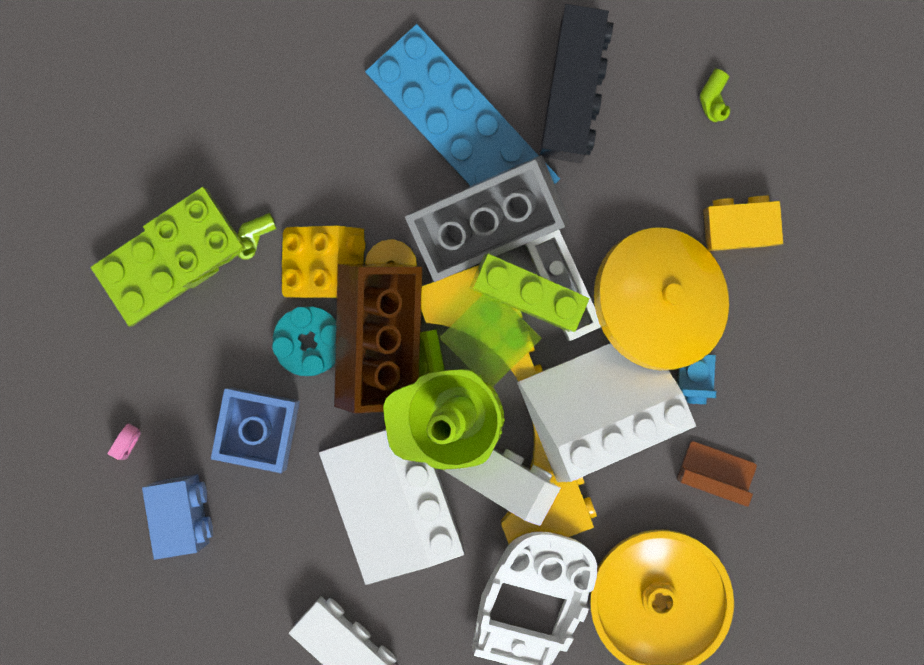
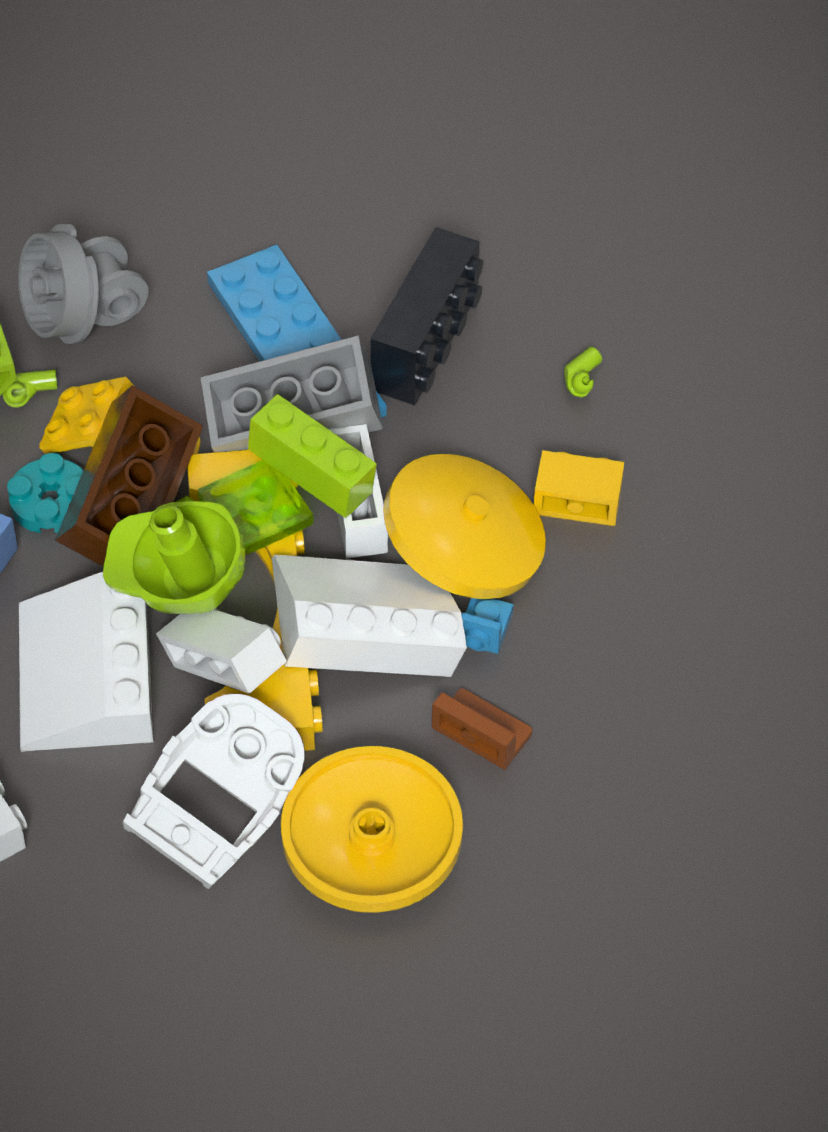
camera: 10 degrees right, 35 degrees down
(247, 143) = (76, 284): none -> light grey piece

